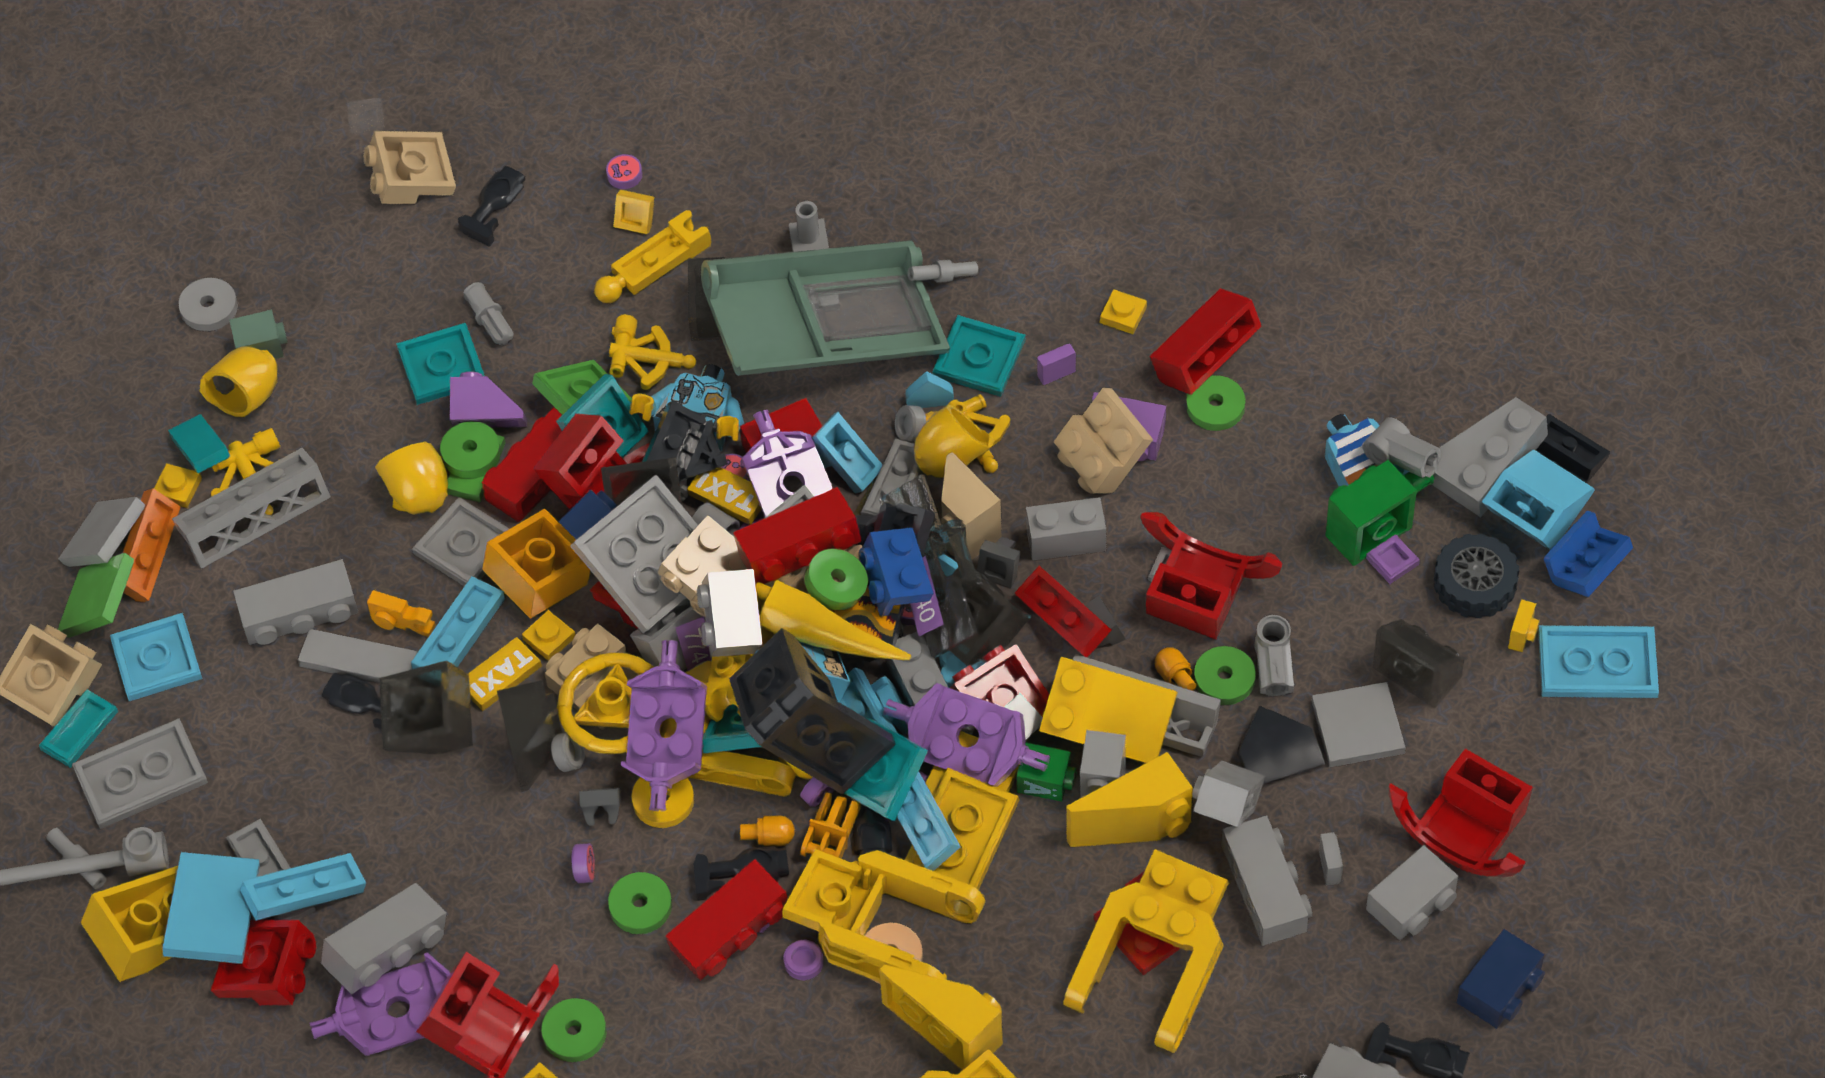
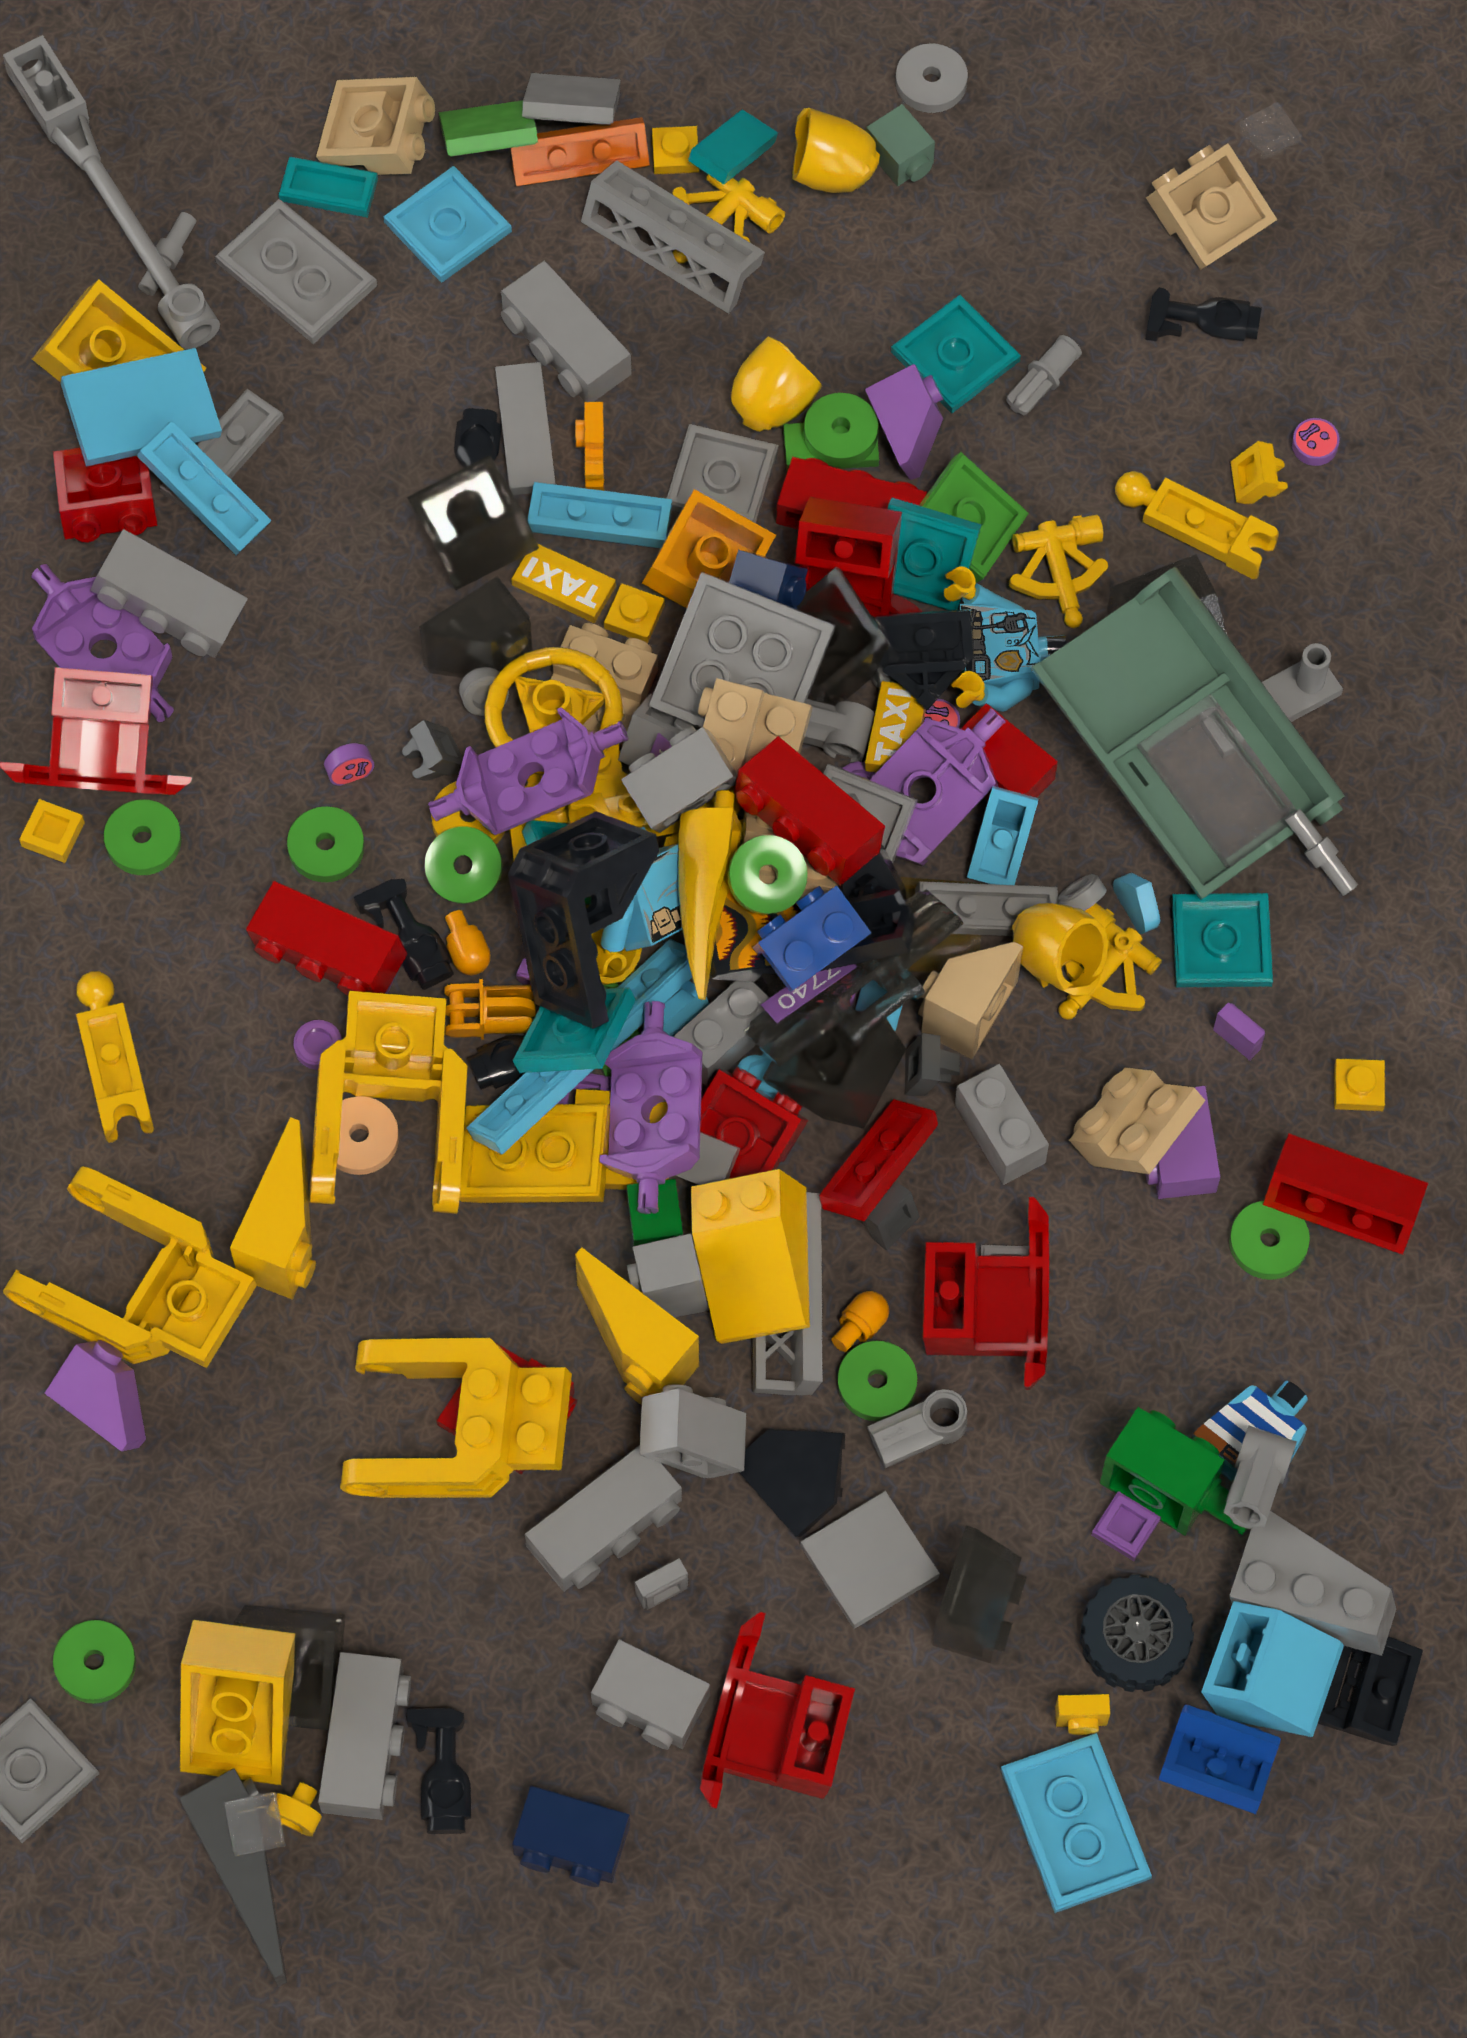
camera: 65 degrees right, 10 degrees up
(694, 824) = (441, 862): none -> bright green piece

